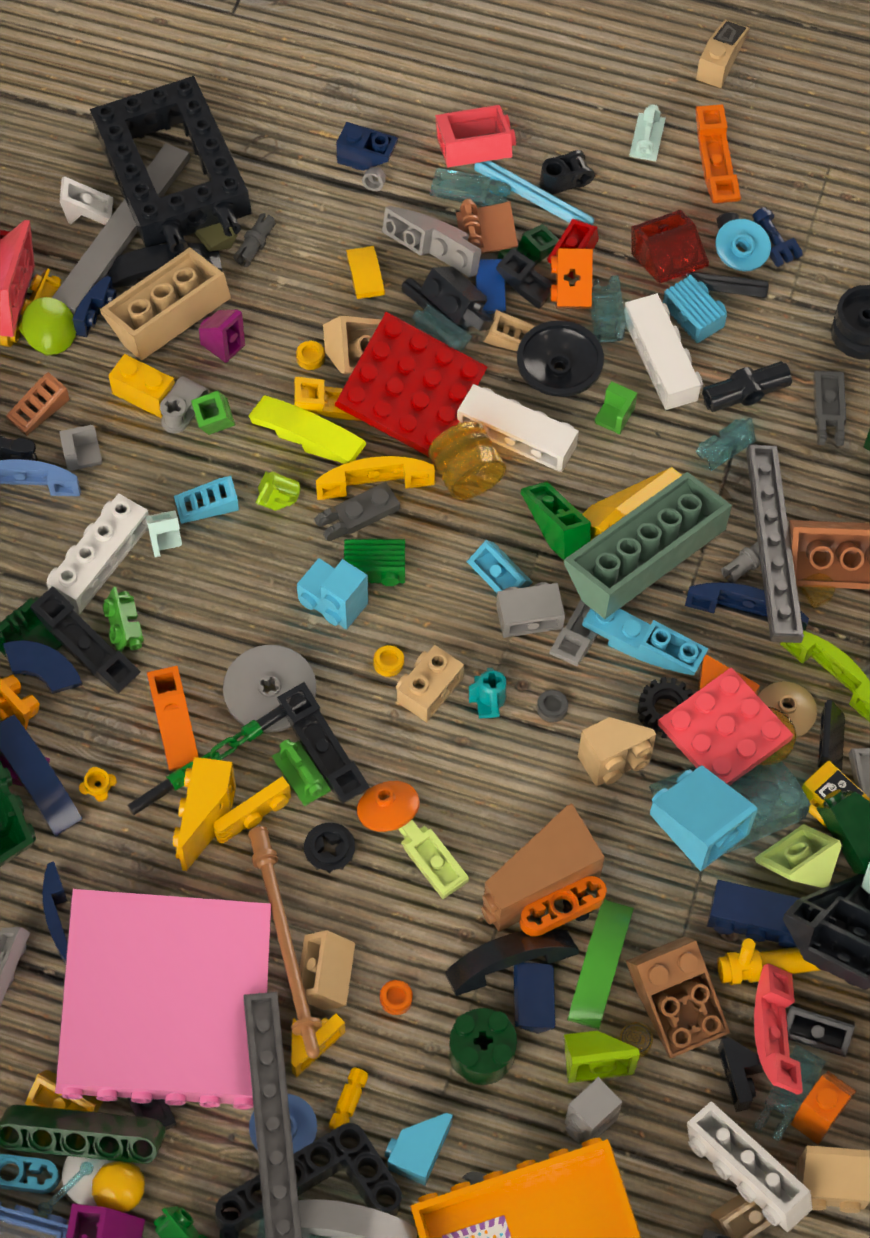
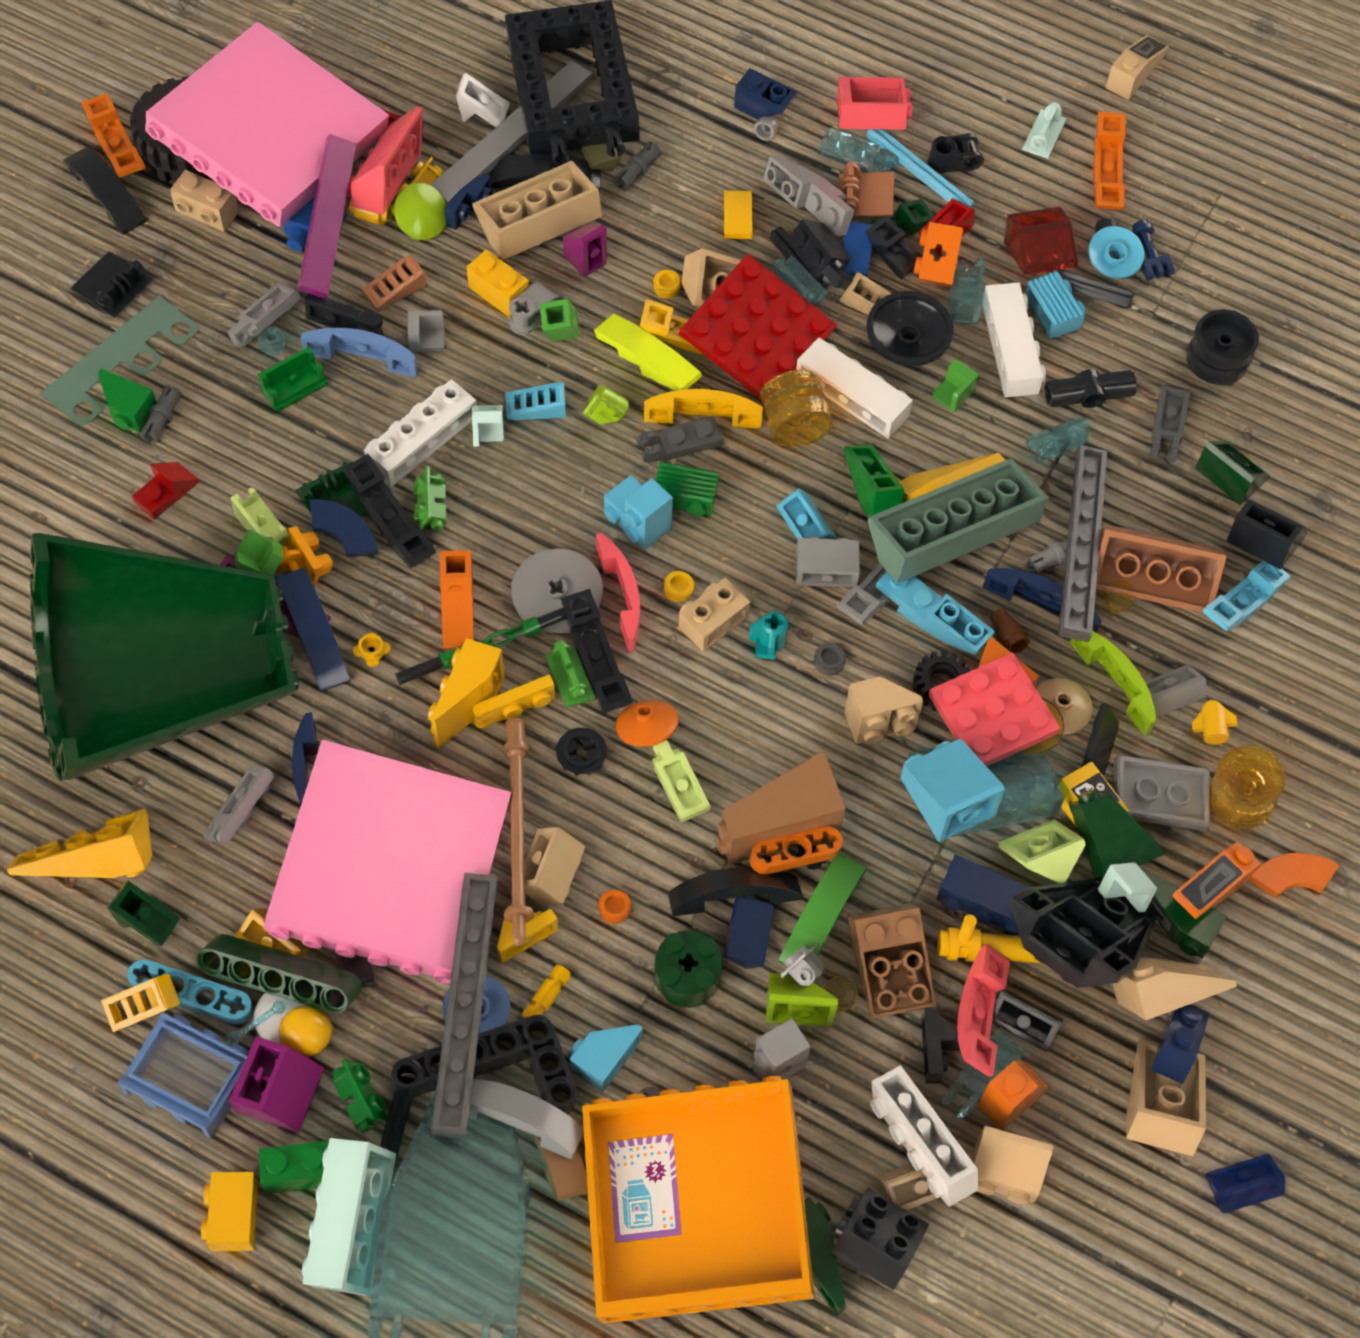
camera: 10 degrees right, 0 degrees up
(320, 647) = (613, 561): none -> coral slope
(596, 1021) = (804, 966): none -> light grey hinge
(721, 645) = (1009, 631): none -> reddish brown cone

